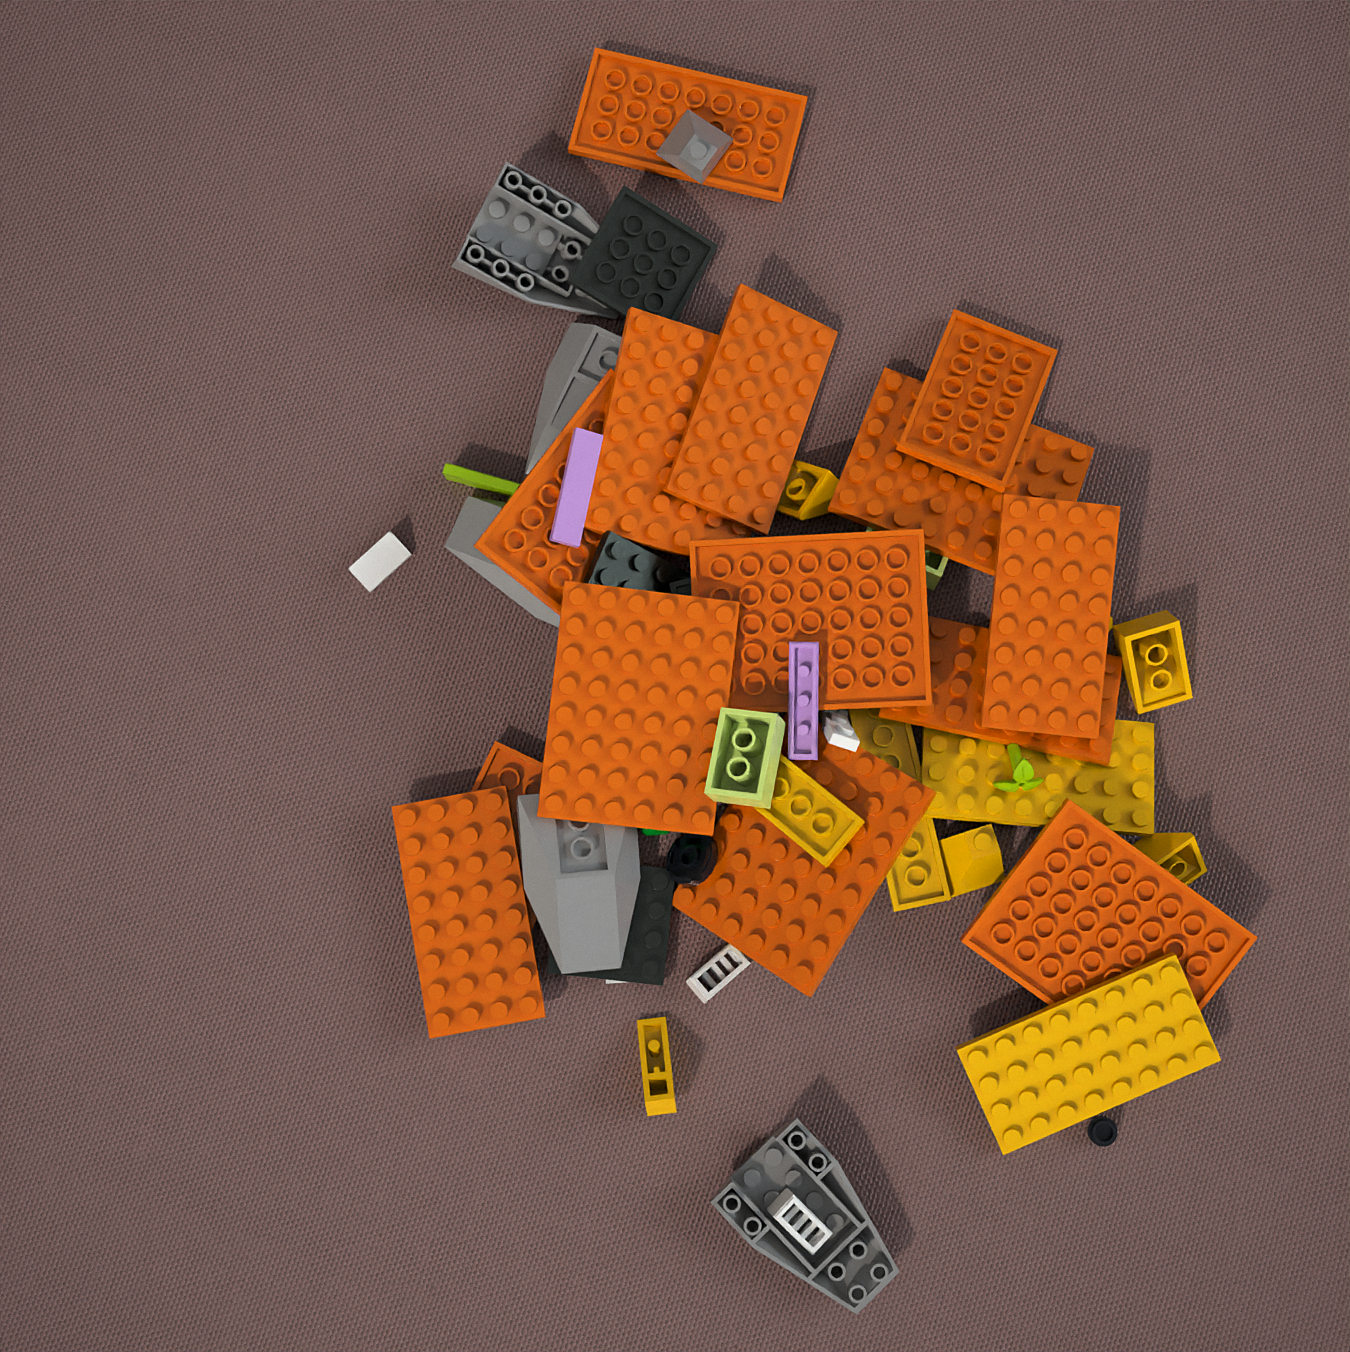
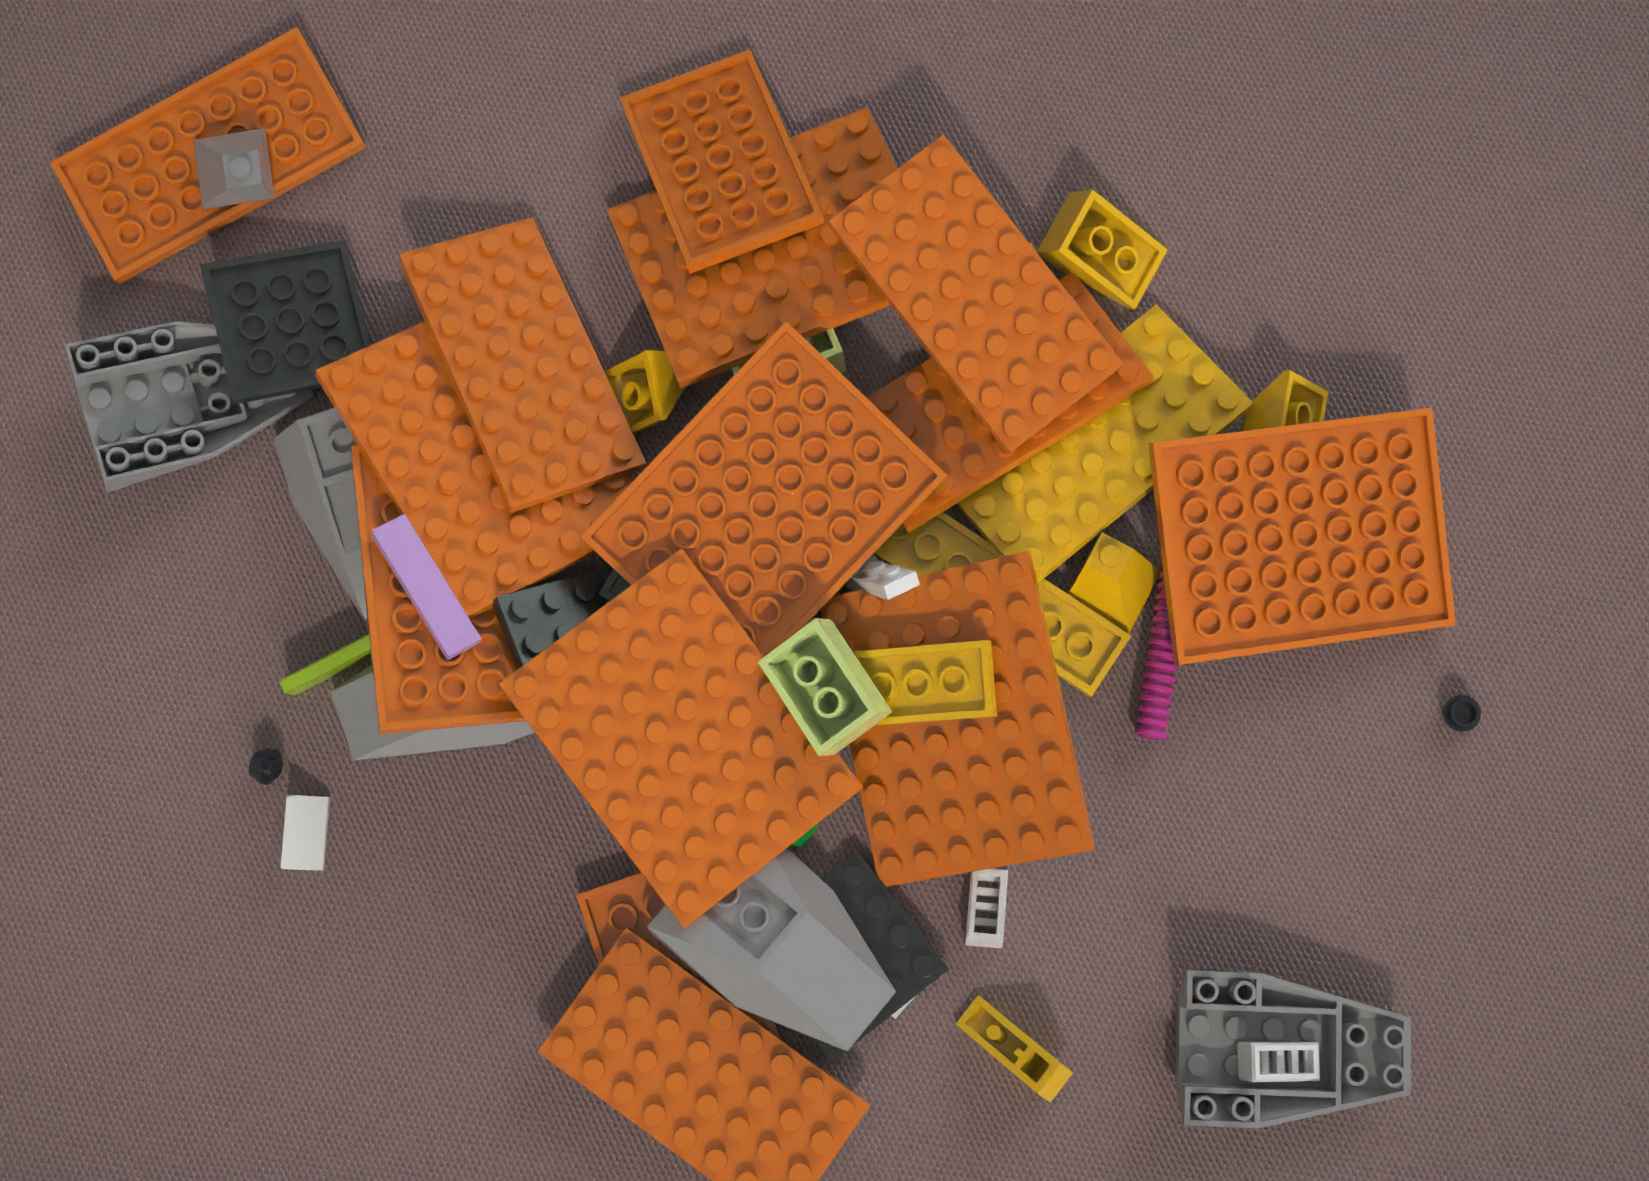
camera: 45 degrees left, 0 degrees up
(393, 503) = (265, 766): none -> black plate
(692, 859) = (864, 827): black tile -> none
(803, 701) = (827, 583): lavender tile -> none
(943, 938) = (1159, 674): none -> dark pink piece
(1022, 773) = (1084, 457): lime plant -> none
(1088, 1053) = (1384, 656): yellow plate -> none

